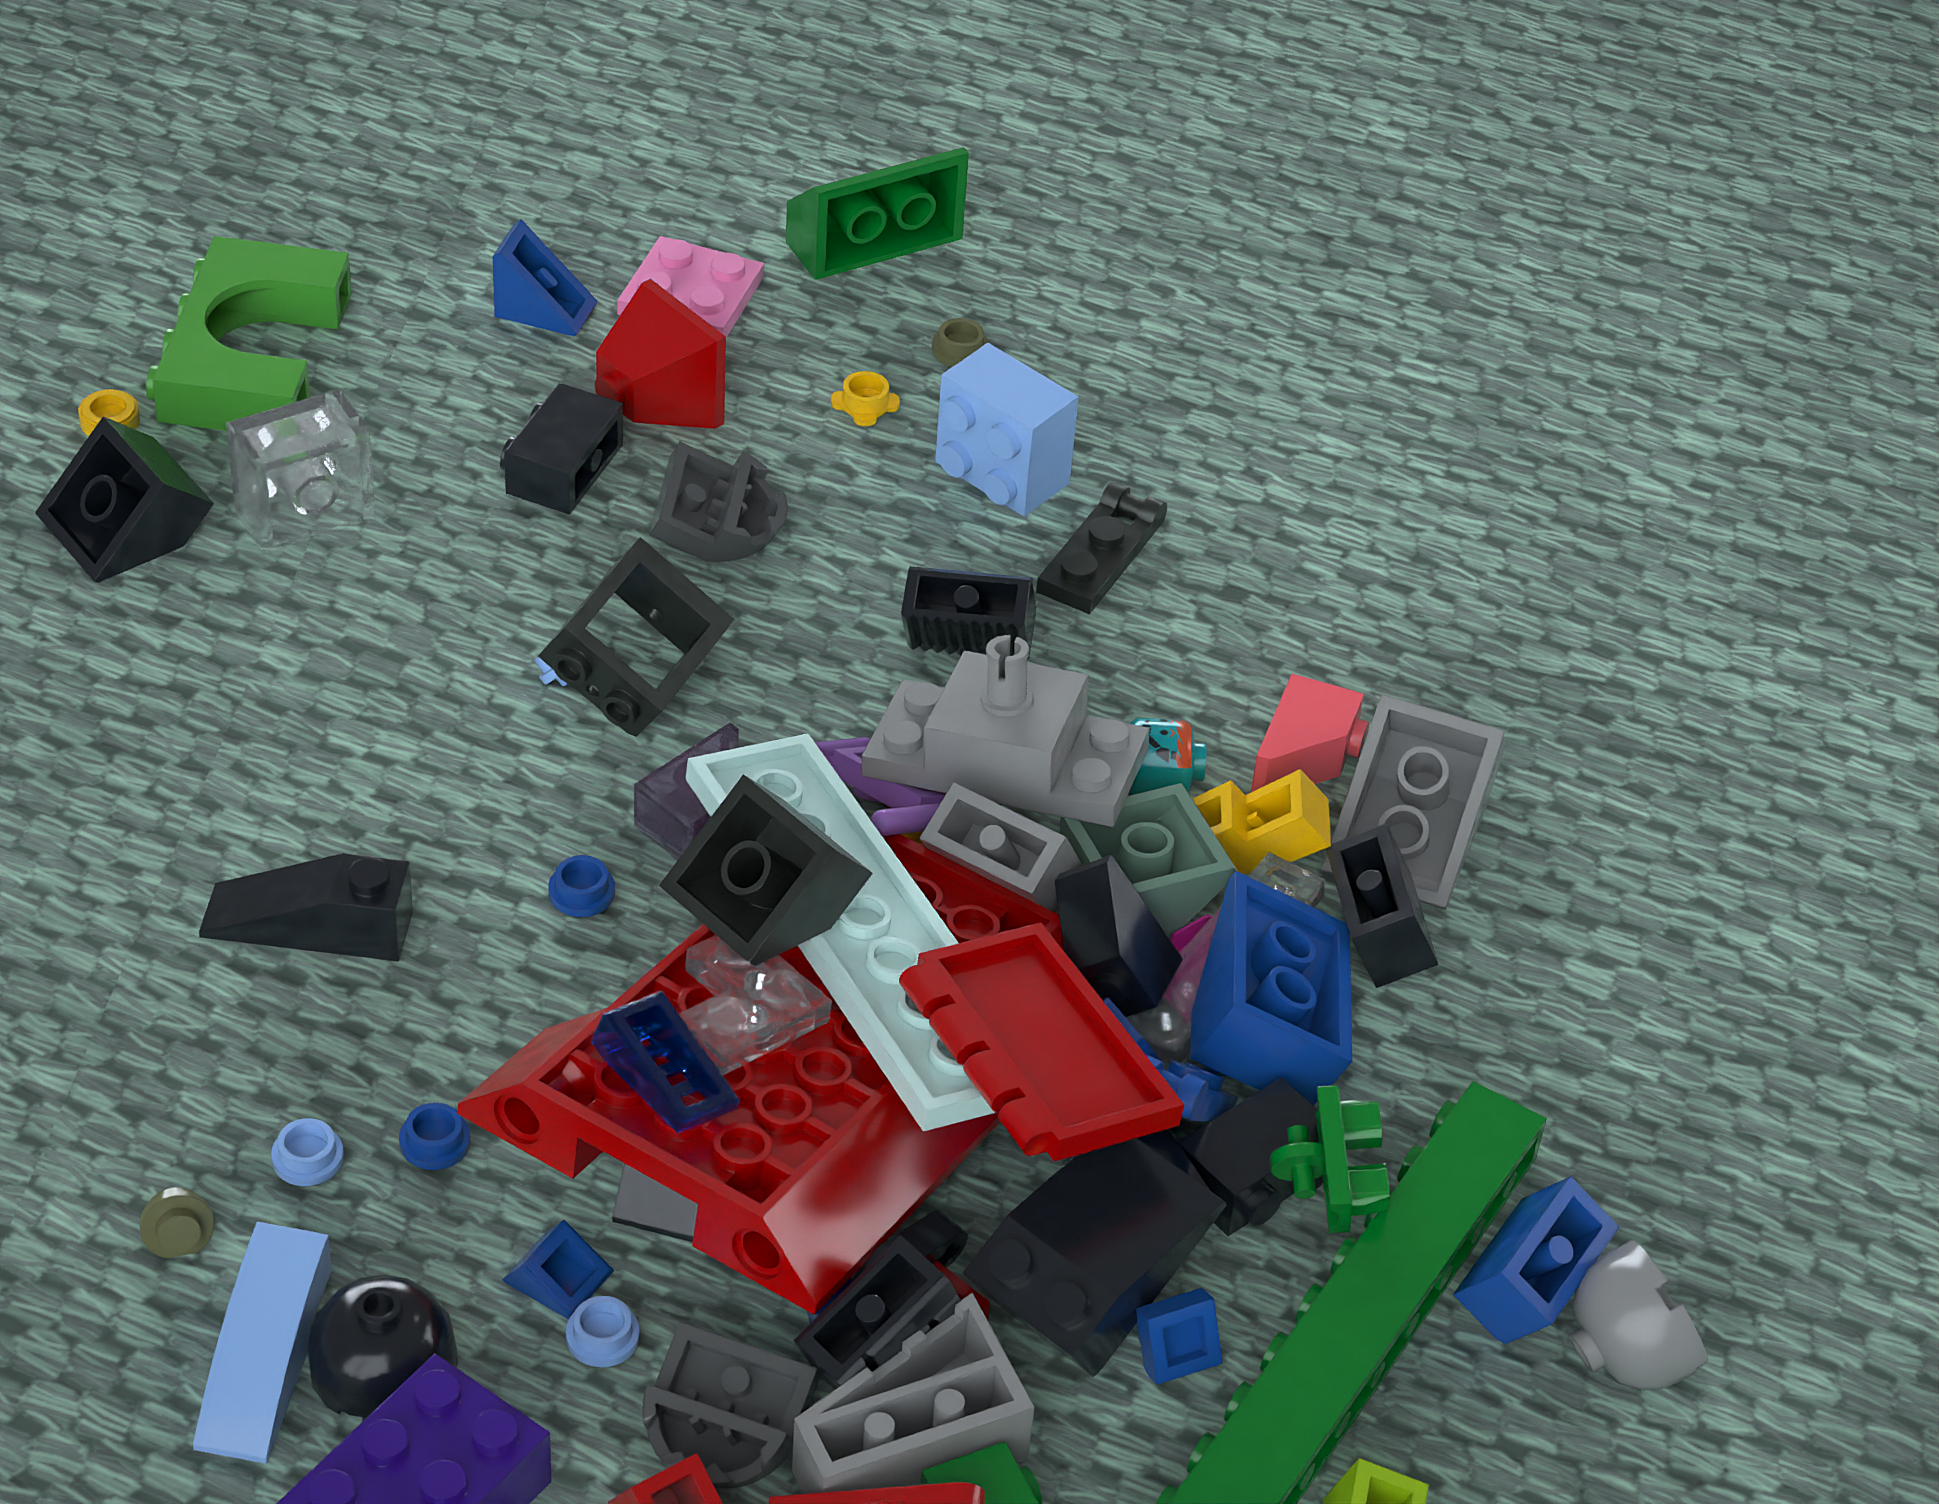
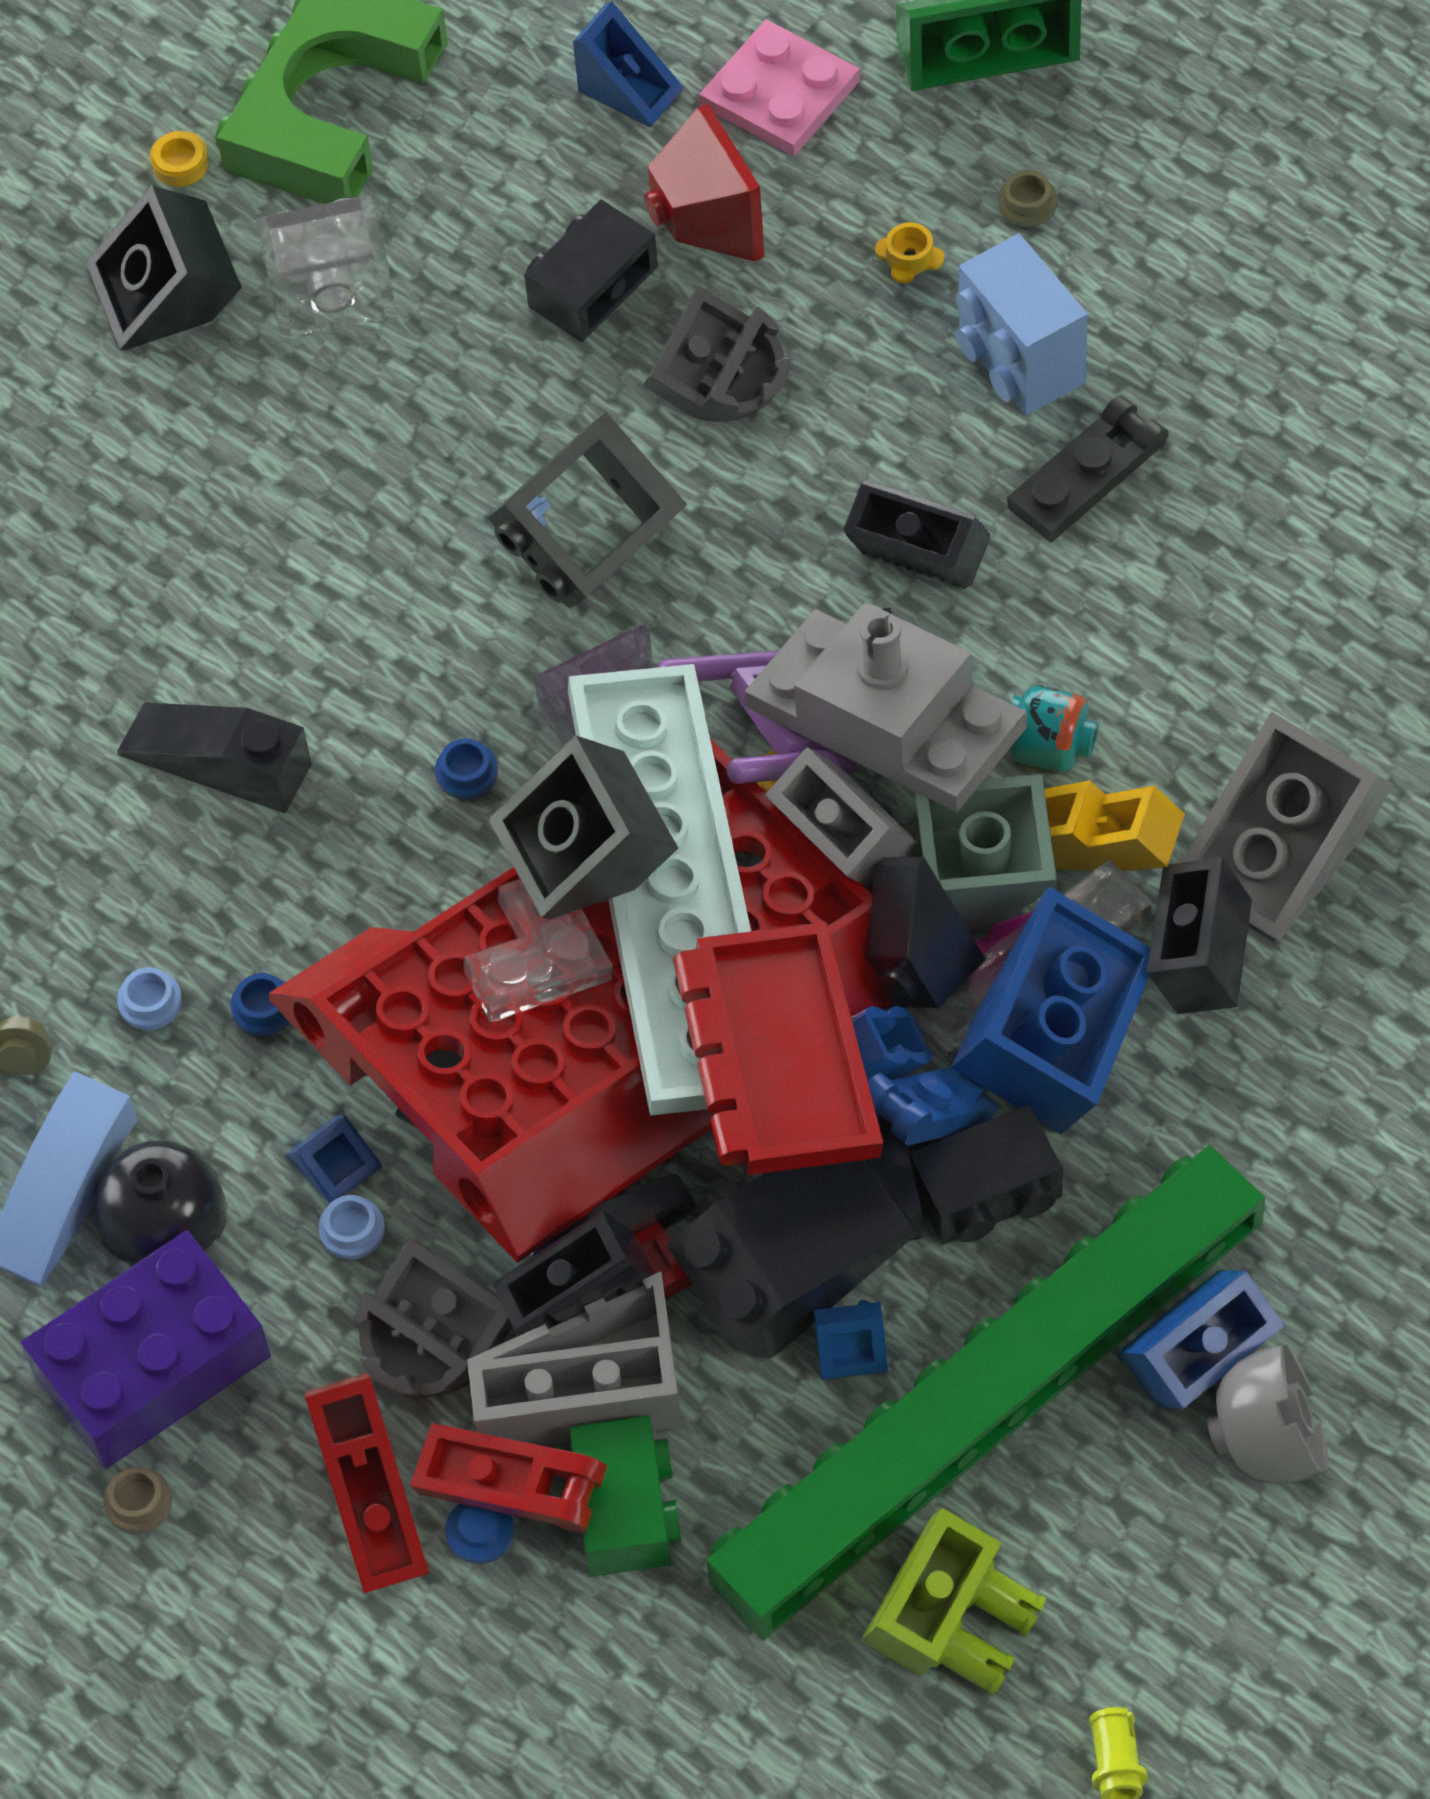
camera: 25 degrees right, 15 degrees up
(658, 1022) = (440, 957): clear blue slope -> none
(1311, 732) = (1202, 730): coral slope -> none
(1346, 1188) = (1036, 1234): green hips -> none

